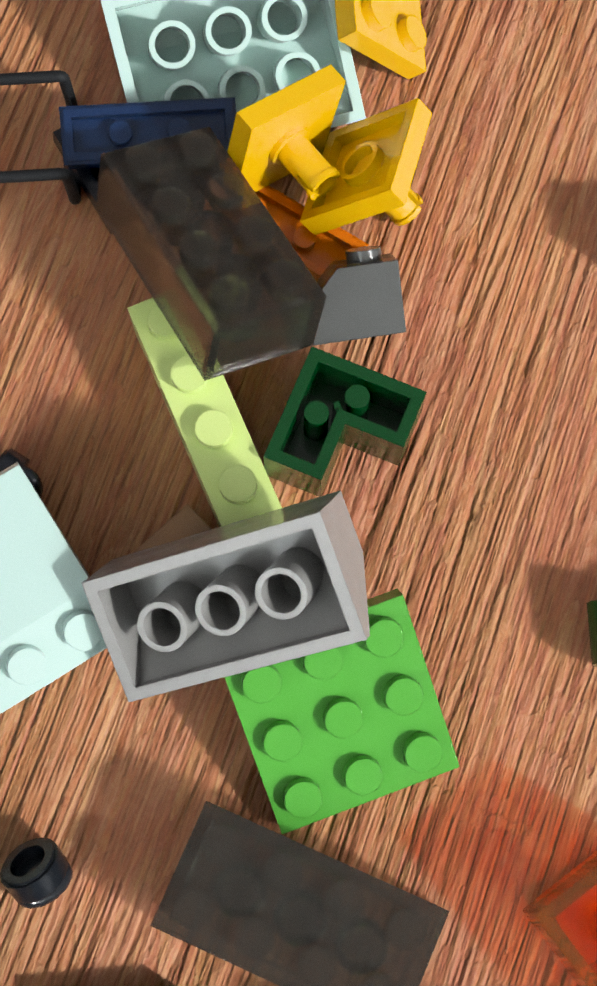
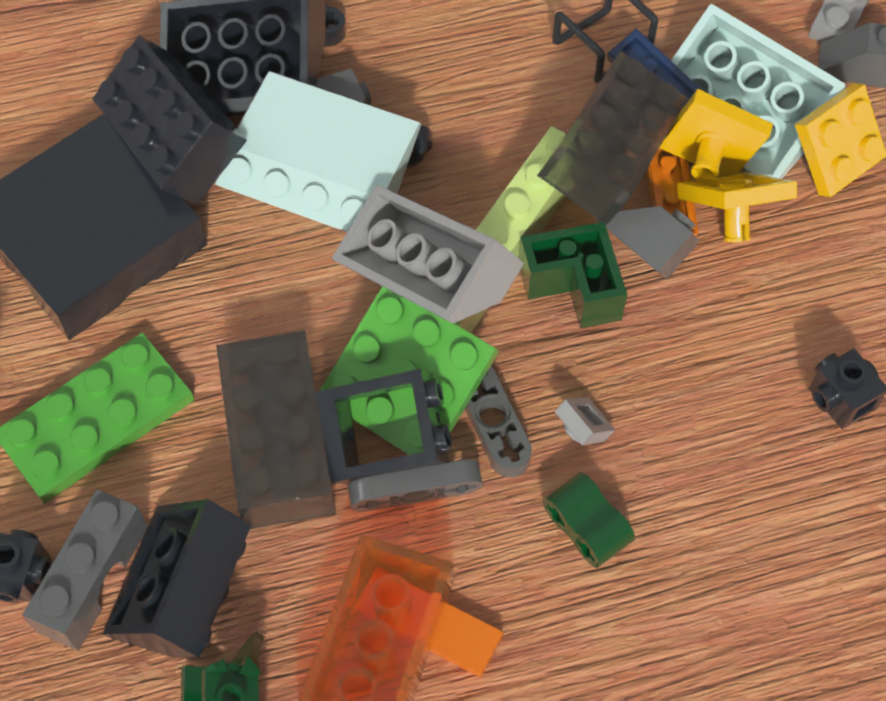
camera: 55 degrees right, 15 degrees down
(36, 873) = (210, 285): black tile -> none
(376, 852) = (339, 431): none -> black window
(481, 798) = (414, 485): none -> dark grey beam
(494, 640) = (491, 436): none -> dark grey beam
(528, 549) = (584, 421): none -> light grey plate

